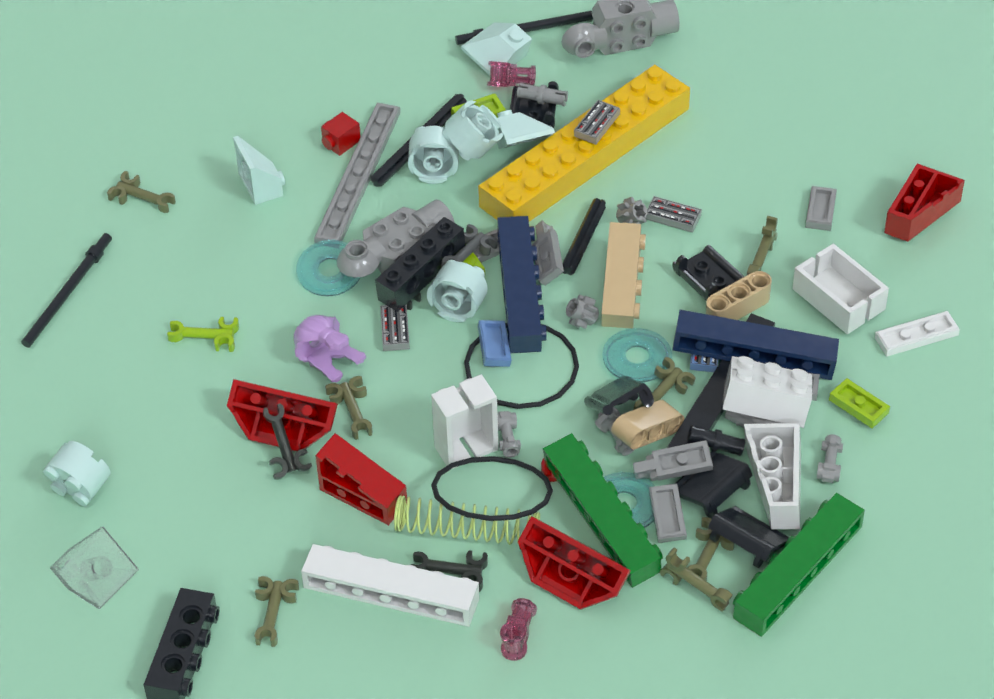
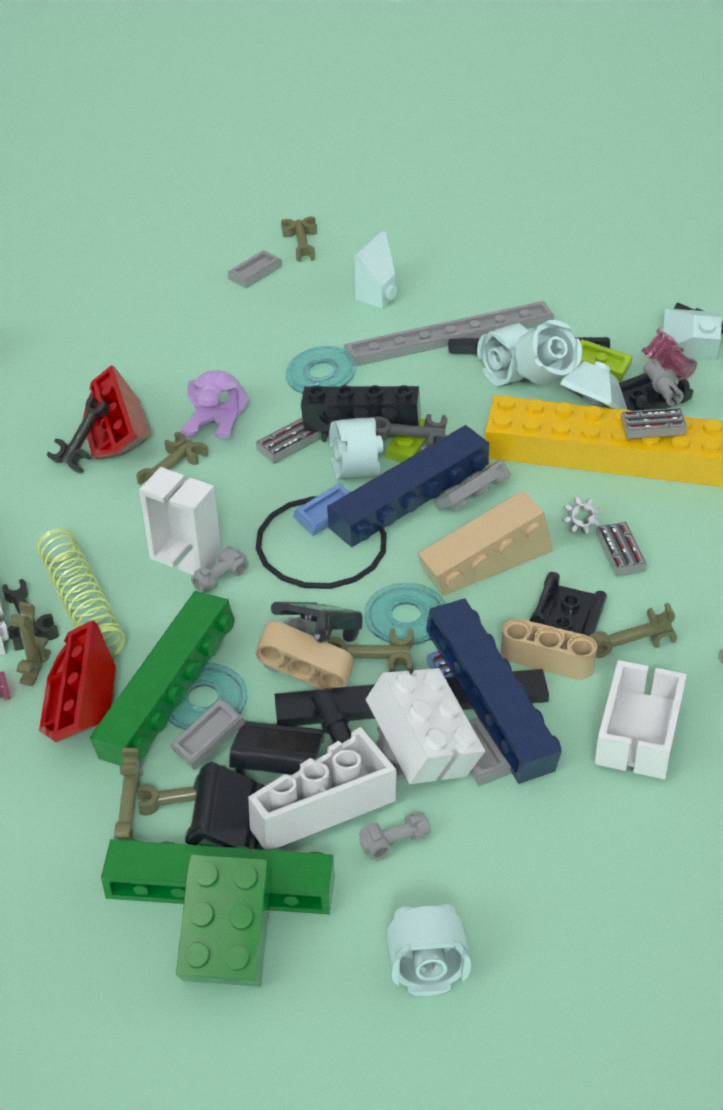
camera: 55 degrees right, 5 degrees down
(93, 256) = (209, 247): black bar -> none
(153, 242) = (254, 269): none -> light grey tile
(221, 336) = (184, 350): lime bar -> none
(340, 133) = (478, 297): red brick -> none
(358, 480) = (73, 497): red wedge -> none
(389, 239) = (333, 370): light grey brick -> none
(495, 517) = (137, 629): black piece -> none
(507, 569) = (33, 645): none -> olive bar
(582, 311) = (414, 541): light grey gear -> none
(583, 236) = (541, 497): black axle -> none
(675, 462) = (273, 703): light grey hinge -> none
(851, 570) = (224, 920): none -> green brick
(859, 403) = (499, 821): lime plate -> none
(917, 333) = (659, 826): white tile -> none
(940, 484) = (427, 949): none -> light aqua brick

